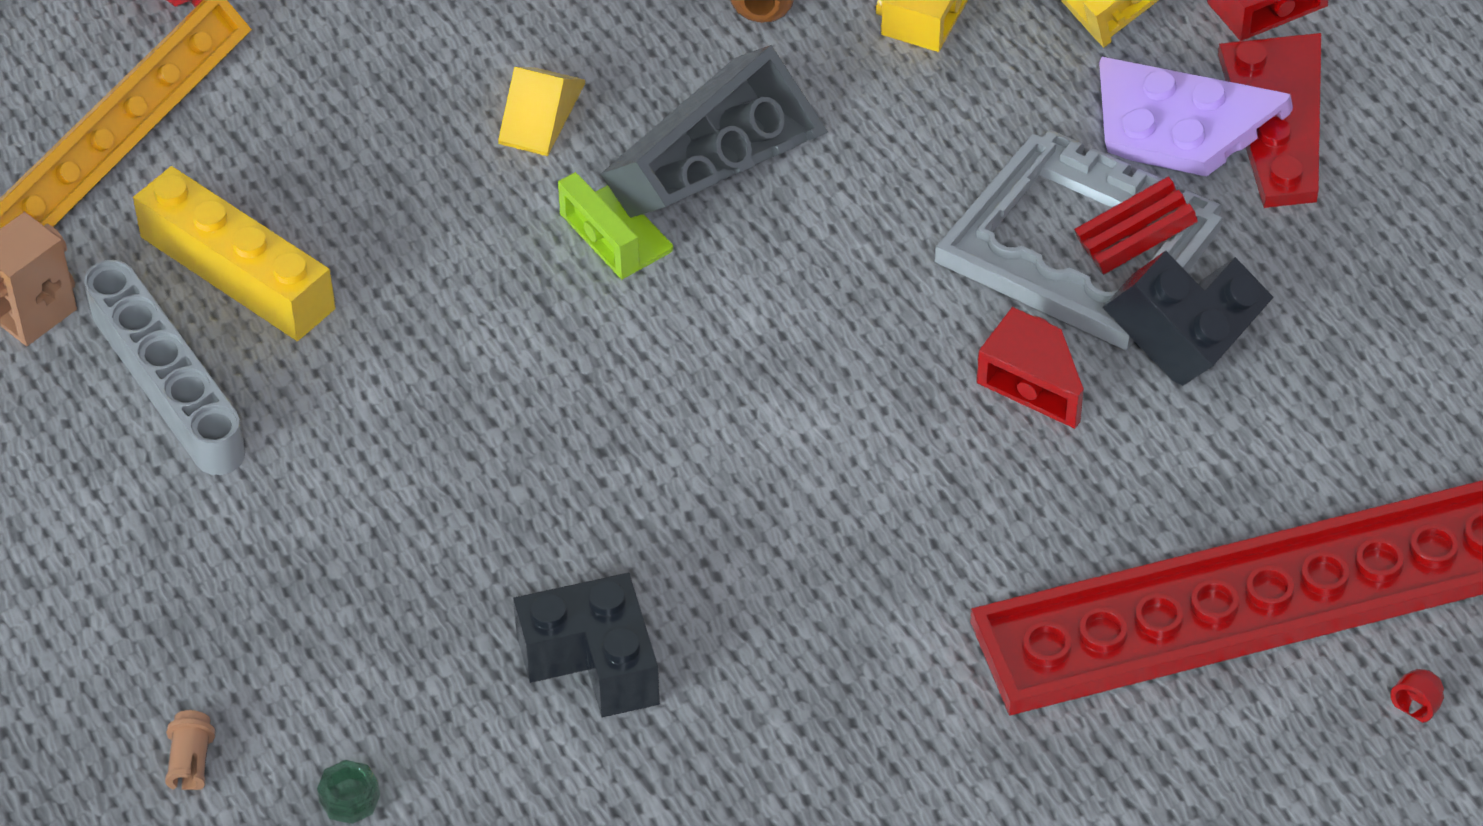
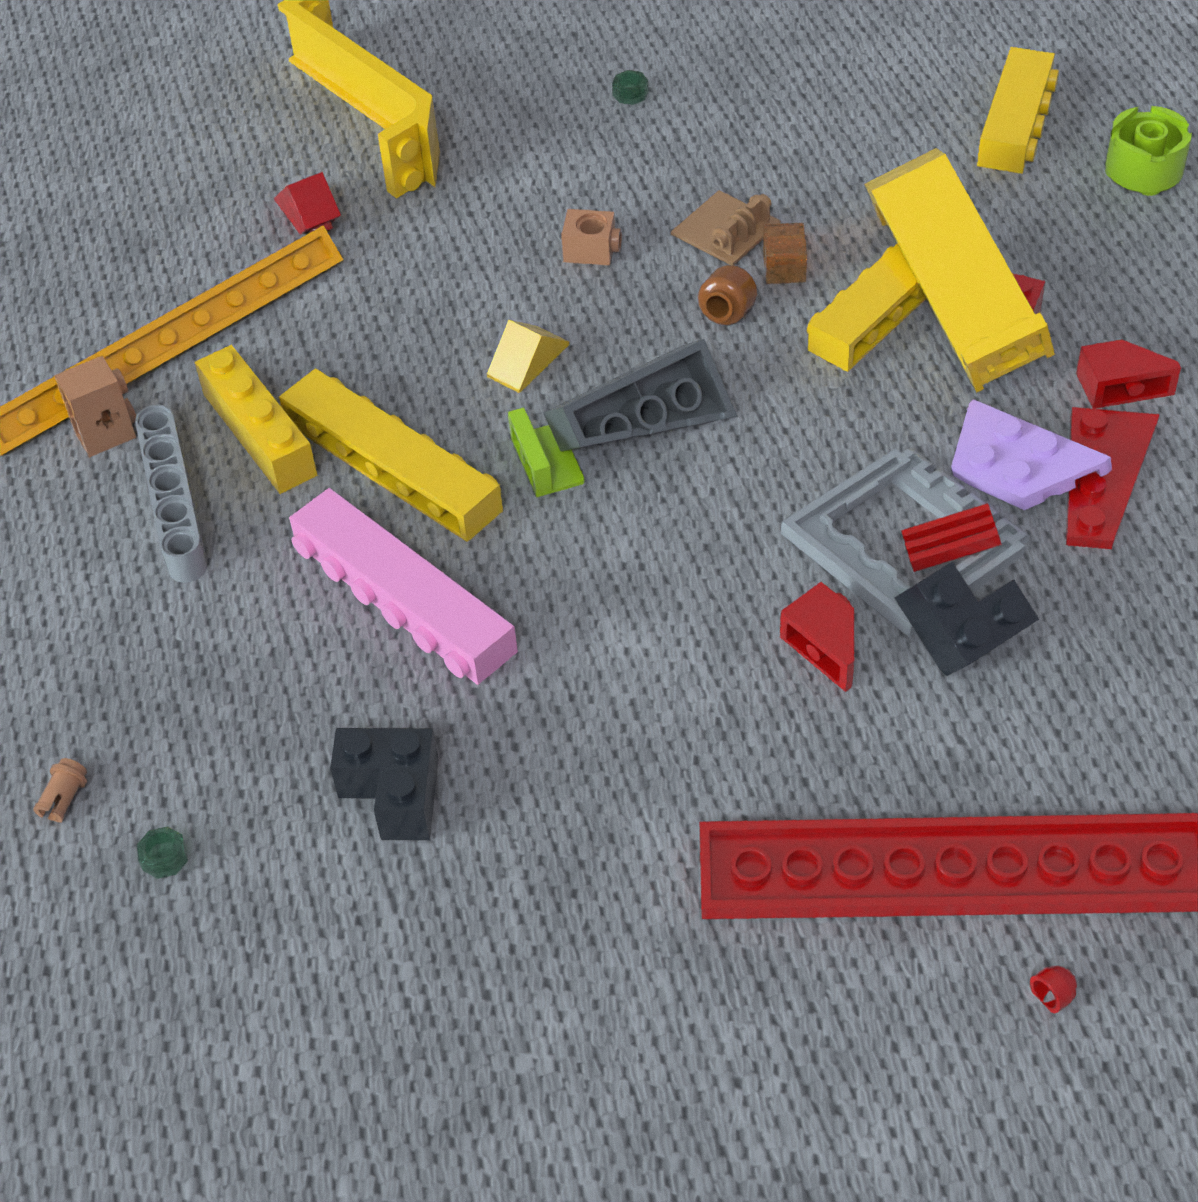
camera: 20 degrees right, 0 degrees up
(430, 262) = (393, 454): none -> yellow brick
(508, 417) = (403, 587): none -> bright pink brick

